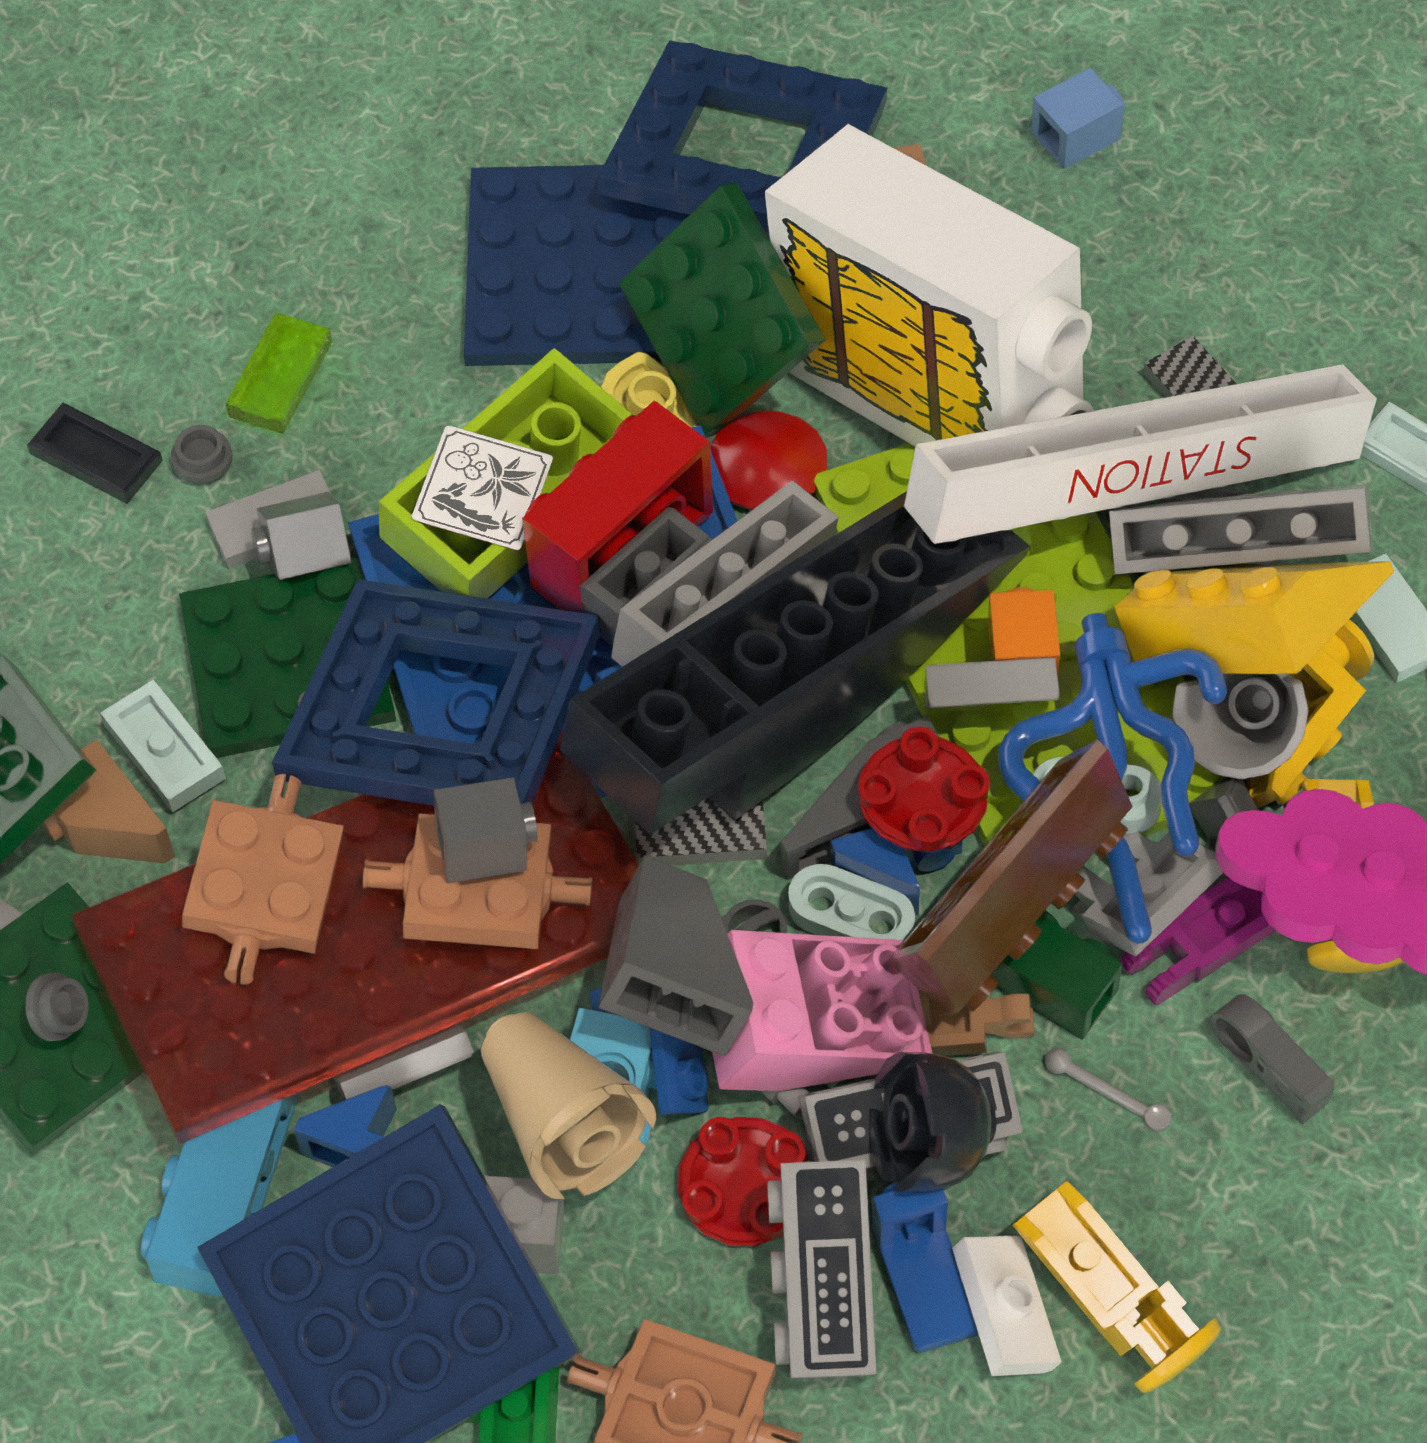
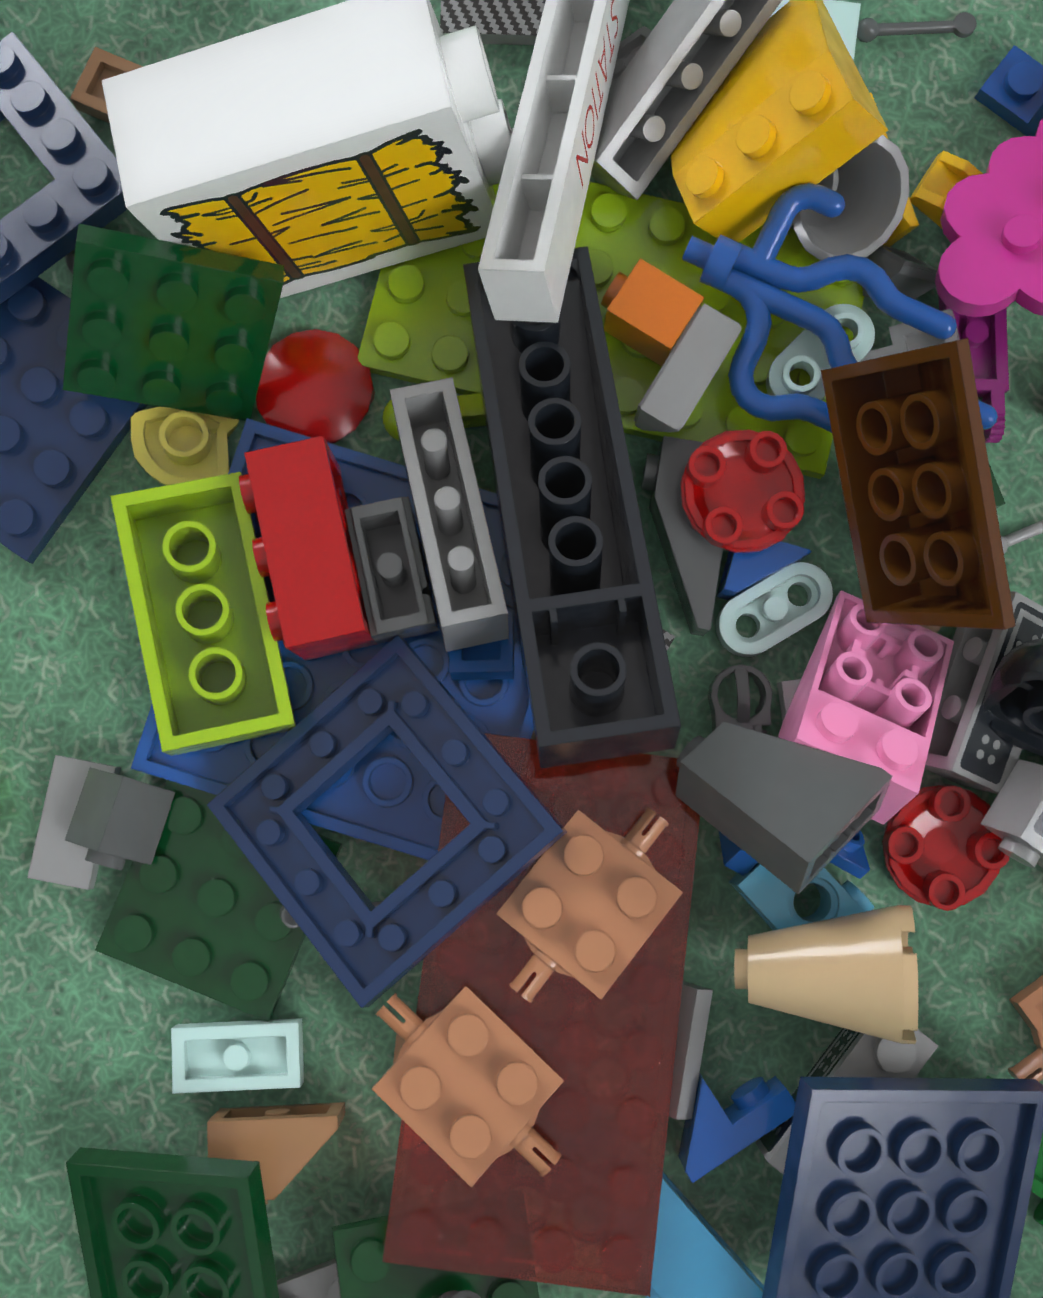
camera: 60 degrees left, 25 degrees up
(481, 487) = (210, 652): white sticker -> none
(483, 829) = (575, 883): dark grey brick -> none

